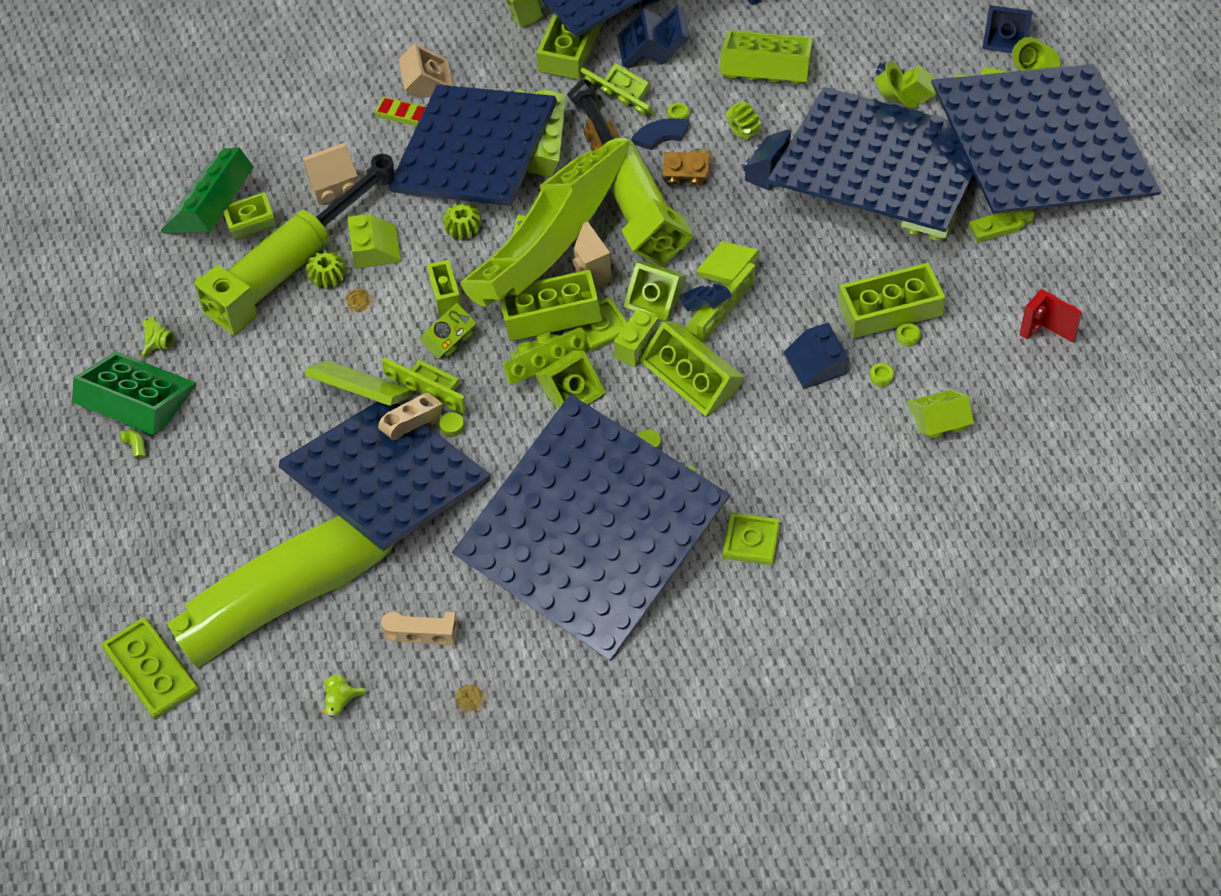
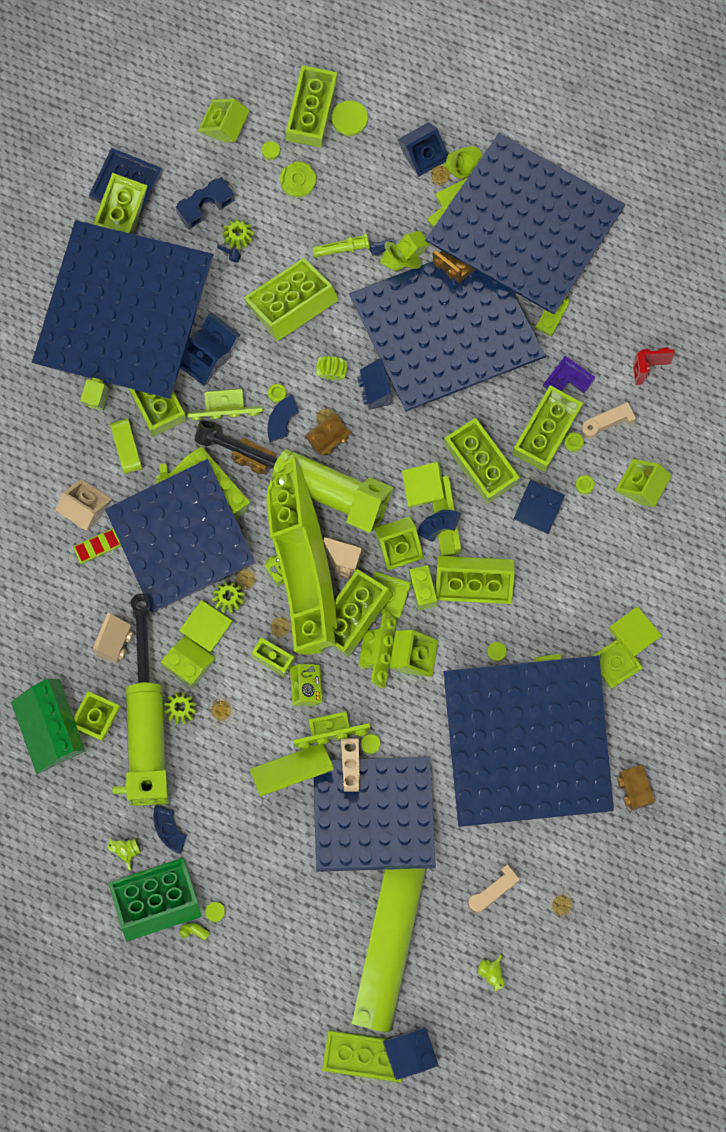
camera: 50 degrees left, 20 degrees up
(169, 444) = (215, 912): none -> lime tile
(187, 693) = (410, 1053): none -> dark blue slope
(207, 353) = (167, 831): none -> dark blue tile
(420, 231) = (206, 626): none -> lime tile
(492, 222) = (245, 580): none -> clear yellow tile
(507, 59) = (125, 446): none -> lime beam
(651, 654) = (636, 788): none -> pearl gold brick
(797, 525) = (634, 632): none -> lime tile
(800, 280) = (481, 460): none -> lime brick
(863, 52) = (350, 244): none -> lime pin
(937, 120) = (454, 268): none -> pearl gold bracket
(958, 338) = (607, 420): none -> tan leg
(962, 277) = (569, 372): none -> dark purple plate
(1002, 59) = (440, 175): none -> clear yellow tile

